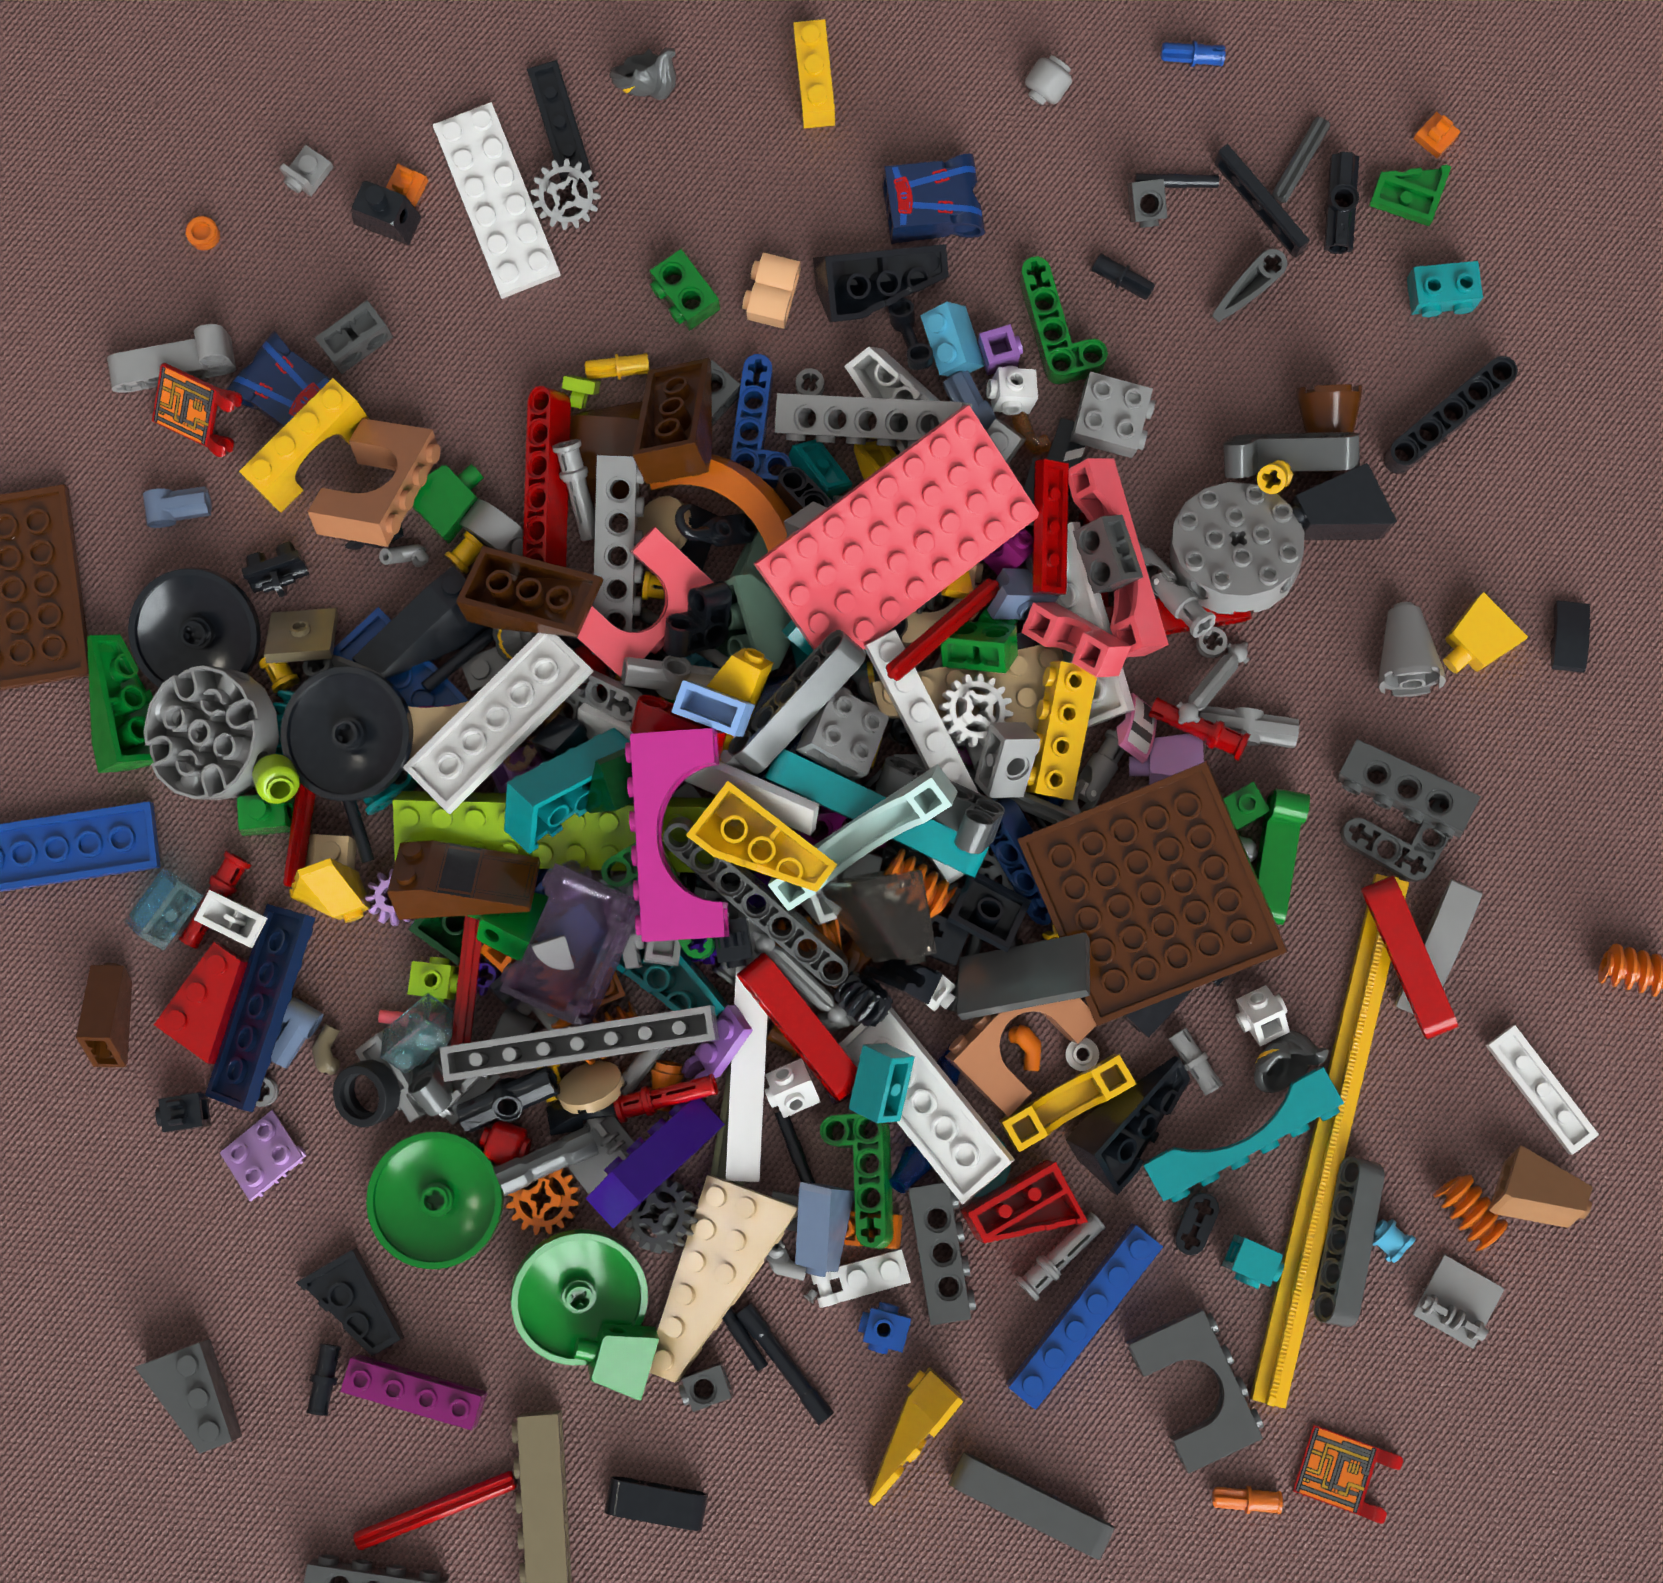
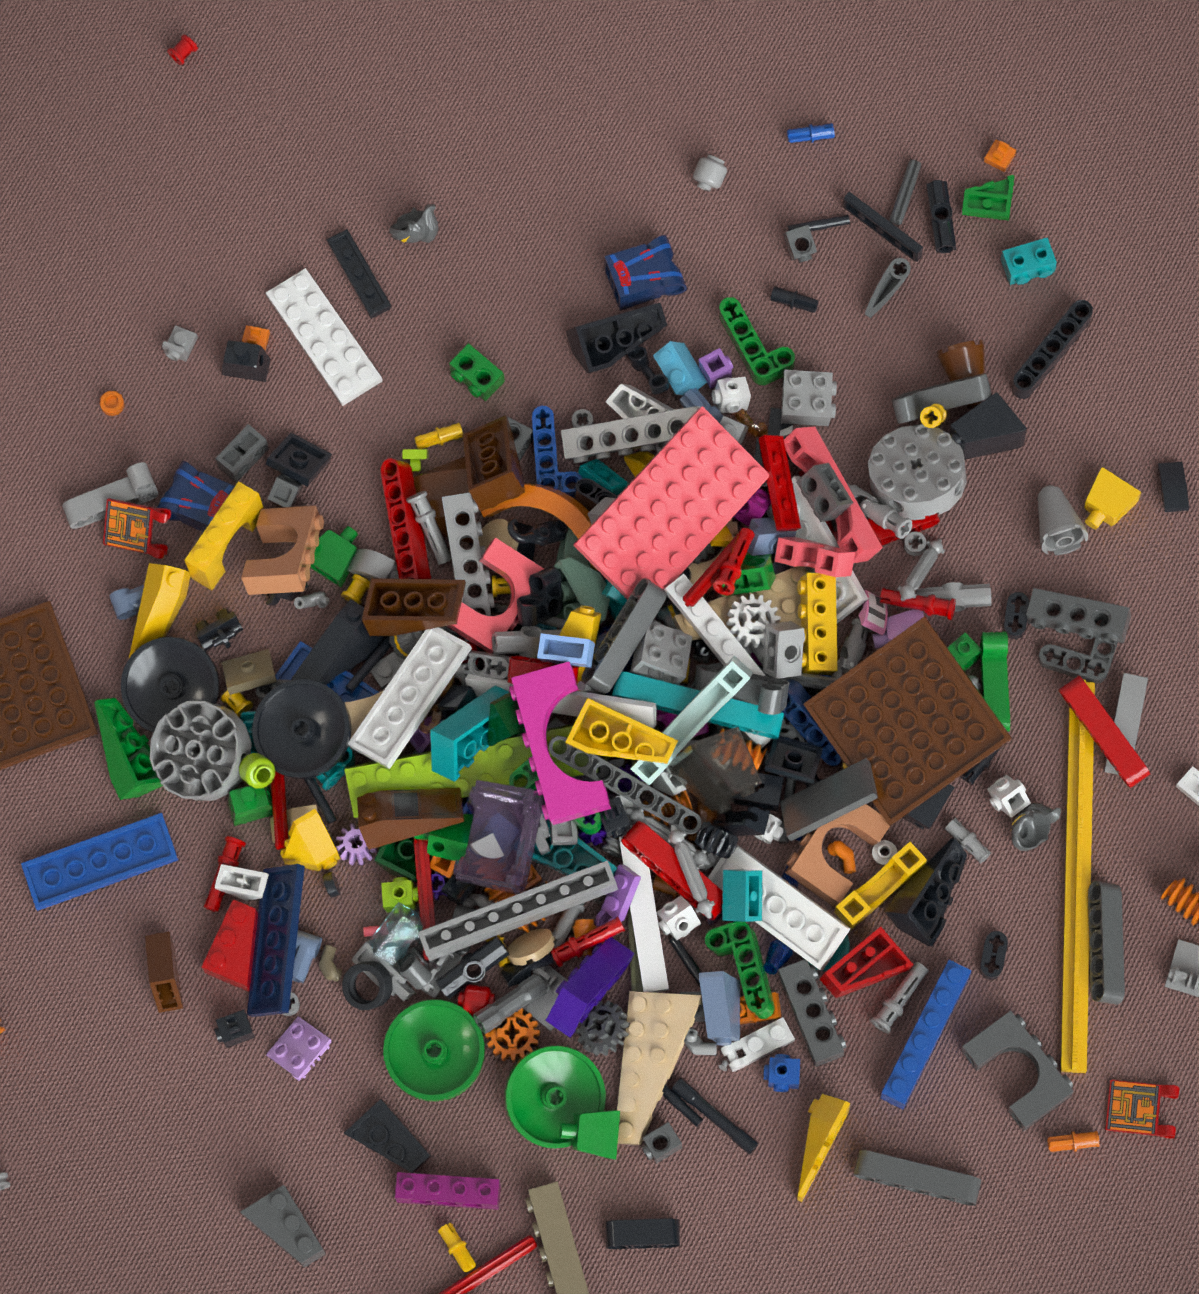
camera: 10 degrees left, 10 degrees down
(163, 909) = (189, 885): clear light blue brick -> none
(204, 519) = (160, 603): none -> yellow wedge
(323, 1379) = (378, 1198): black pin -> none
(350, 945) = (331, 884): none -> black tile
(400, 399) = (285, 491): none -> dark grey brick
(411, 1469) = (457, 1247): none -> yellow axle
(426, 360) = (299, 459): none -> black plate
(579, 200) = (377, 310): light grey gear -> none
(772, 291) = (541, 359): light nougat brick -> none
(814, 73) = (538, 201): yellow brick -> none
(819, 1037) = (691, 871): none -> light grey wheel
(960, 637) = (729, 578): none -> red pin
(1253, 1262) = (1039, 968): teal brick -> none
(1305, 1100) = (973, 916): teal arch -> none
(1317, 765) = (1011, 614): none -> black beam
(1391, 1240) = (1136, 935): medium azure brick -> none

